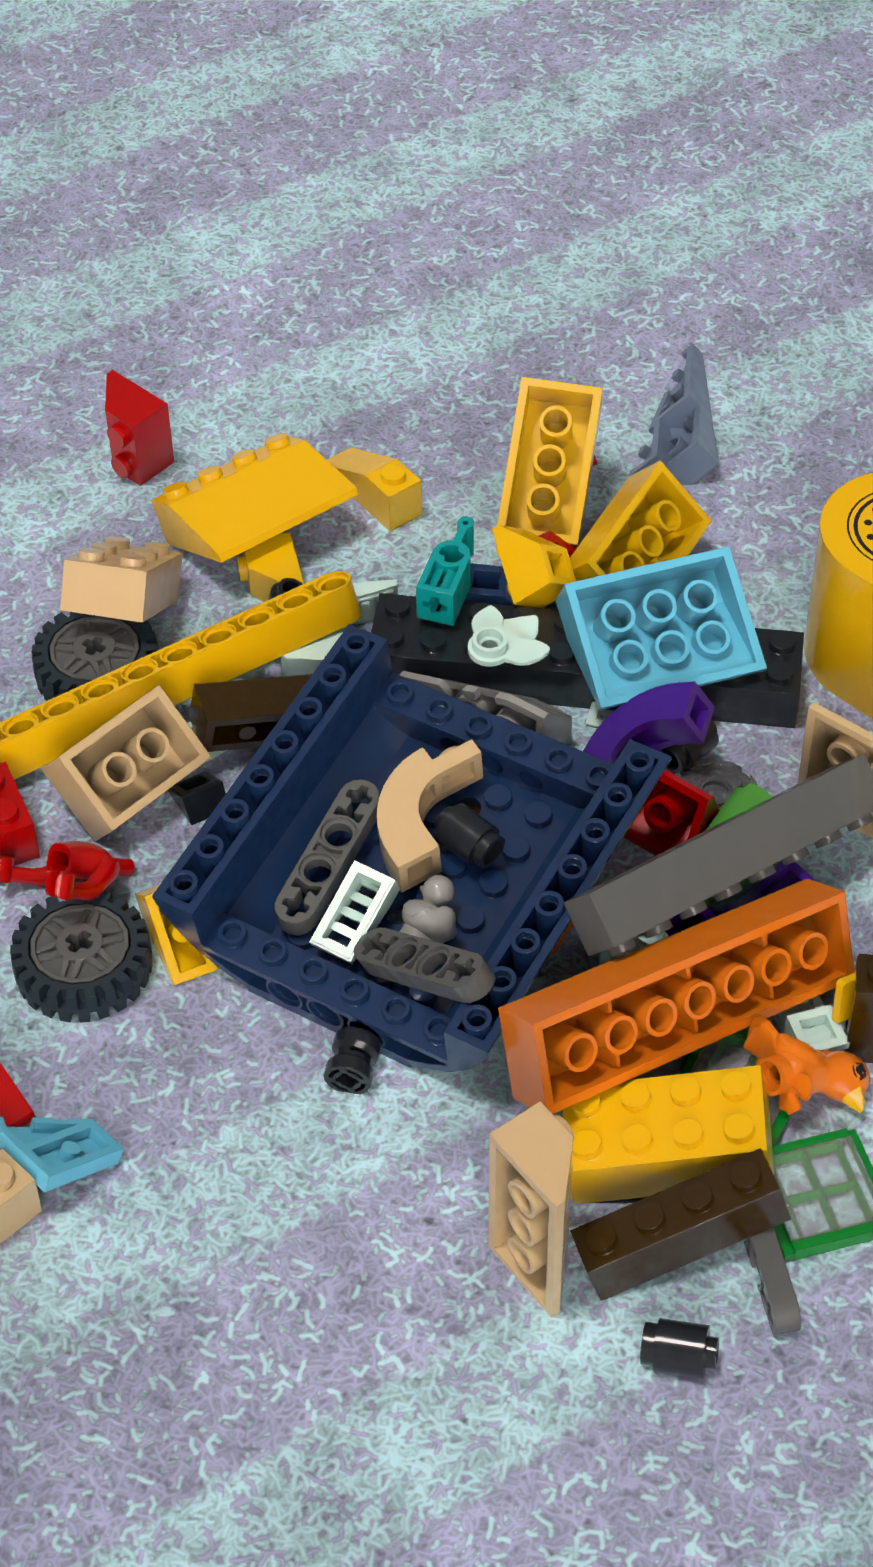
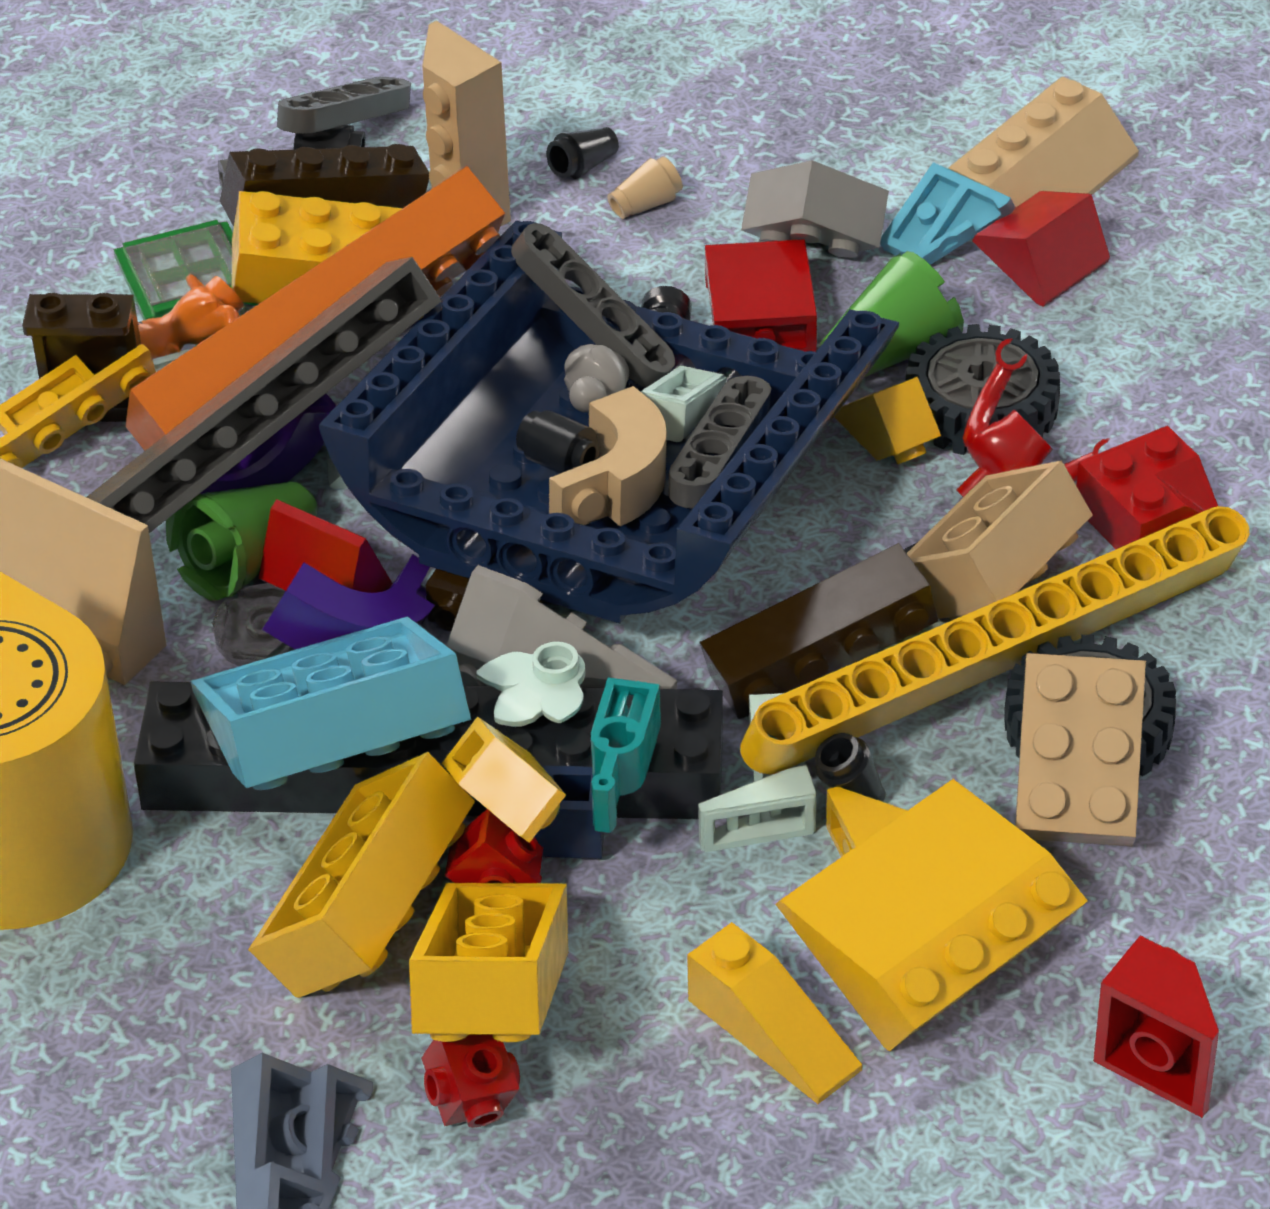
camera: 175 degrees right, 5 degrees down
(142, 1017) = (909, 295): none -> bright green cone
(181, 1156) = (815, 206): none -> light grey slope
(255, 1079) = (763, 291): none -> red panel
(343, 1248) = (646, 188): none -> tan cone
(404, 1314) = (580, 151): none -> black cone
(669, 1375) = (343, 104): none -> dark grey beam

